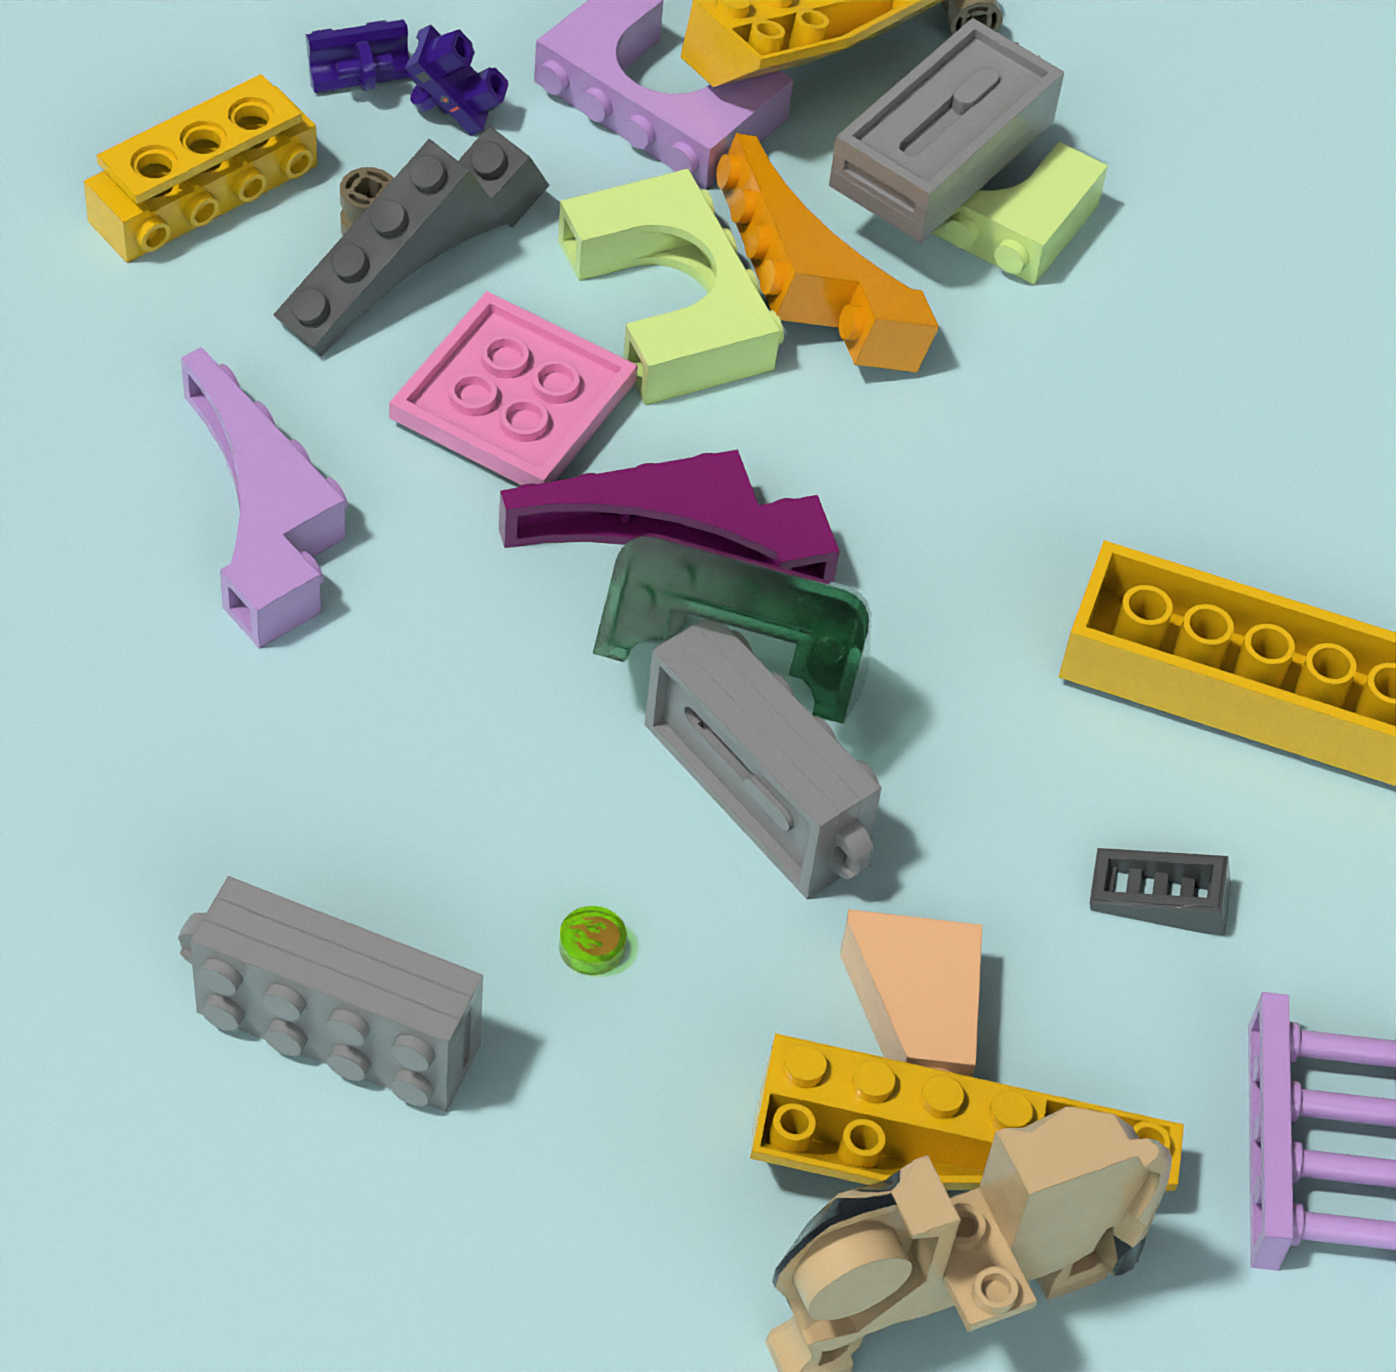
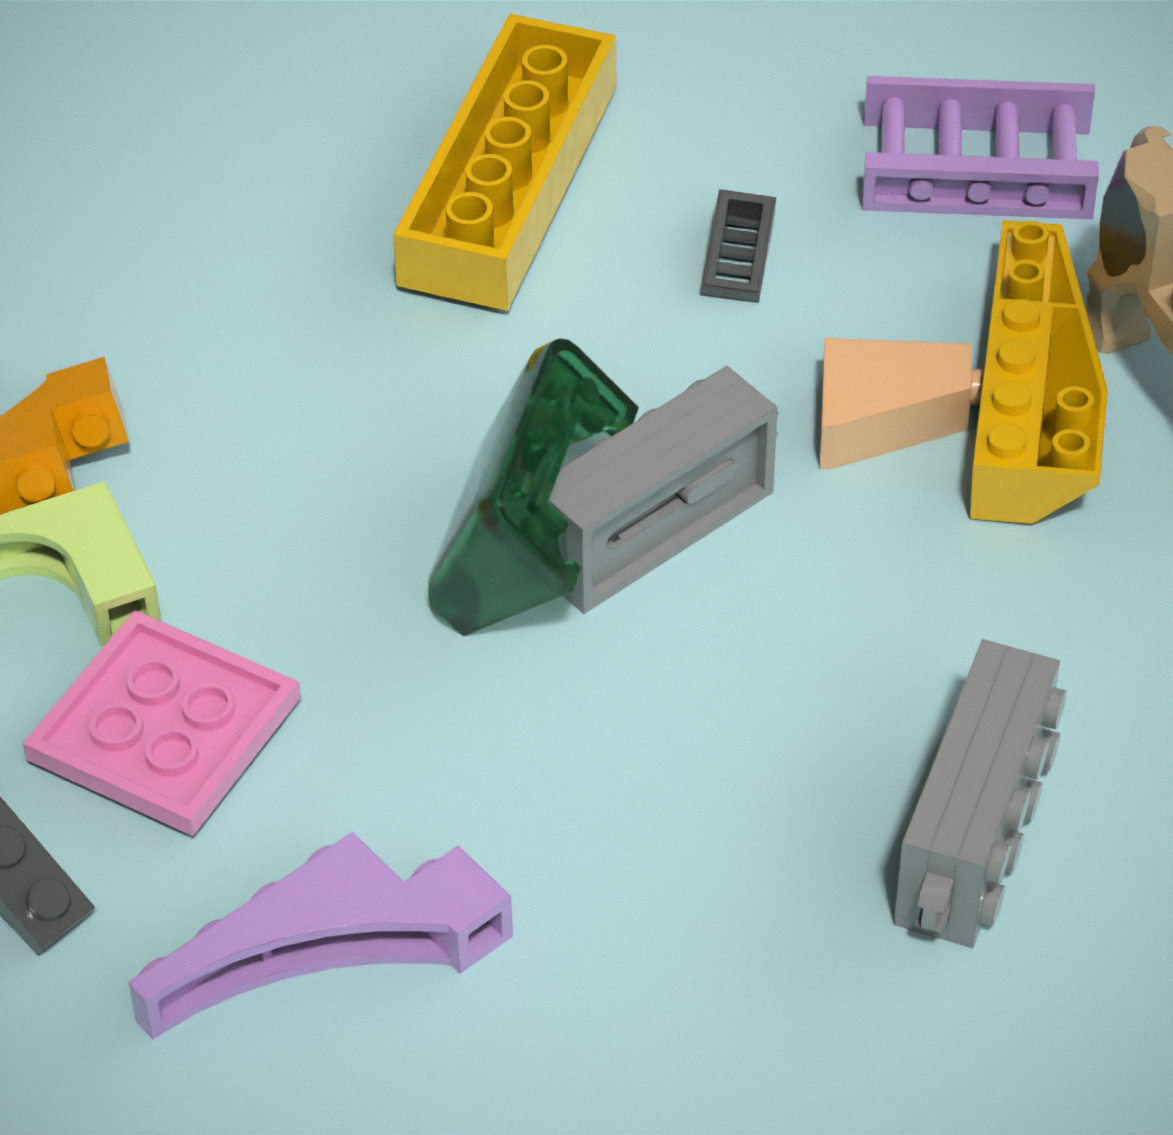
camera: 85 degrees left, 5 degrees down
(592, 940) = (851, 635): clear neon green tile -> none
(688, 499) = (329, 560): magenta arch -> none

